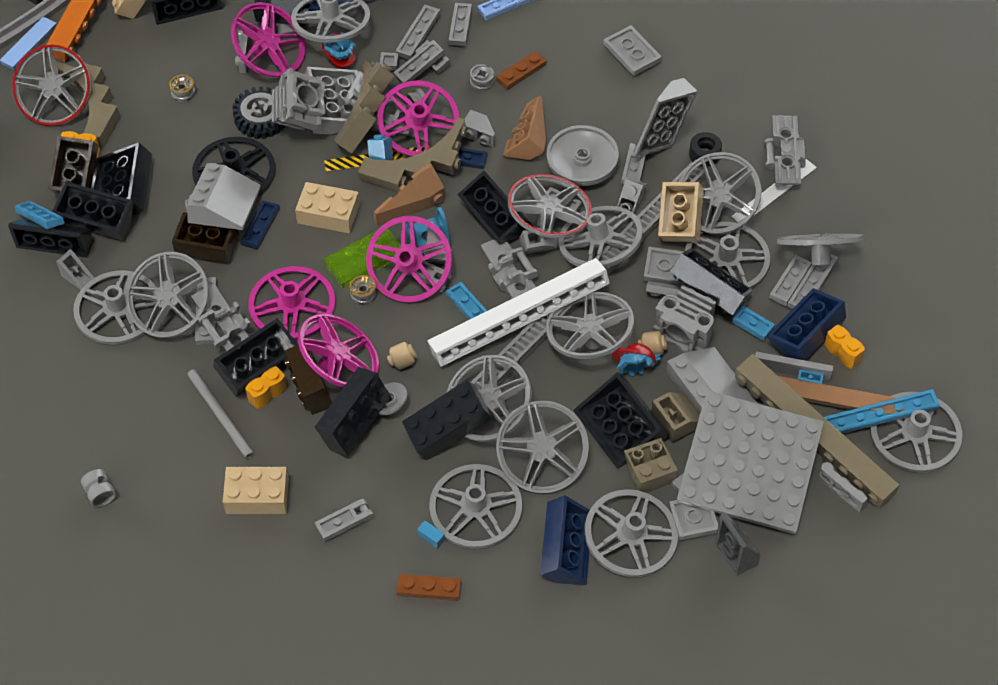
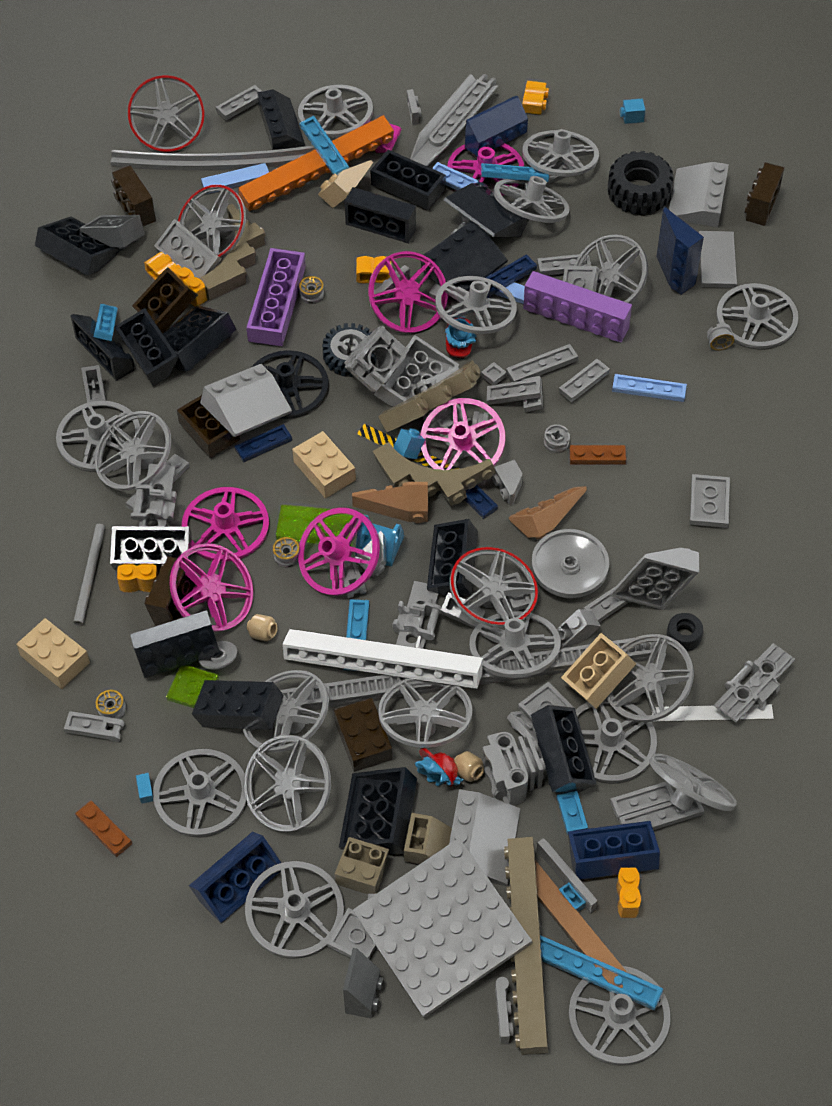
camera: 40 degrees right, 0 degrees up
(39, 147) = (158, 263): none -> light orange brick
(48, 119) = (187, 250): none -> light grey plate
(161, 109) = (276, 297): none -> medium lavender brick
(216, 43) = (366, 266): none -> light orange brick
(340, 488) = (111, 697): none -> light grey wheel
(389, 437) = (188, 685): none -> clear neon green tile
(557, 376) = (362, 734): none -> dark brown brick

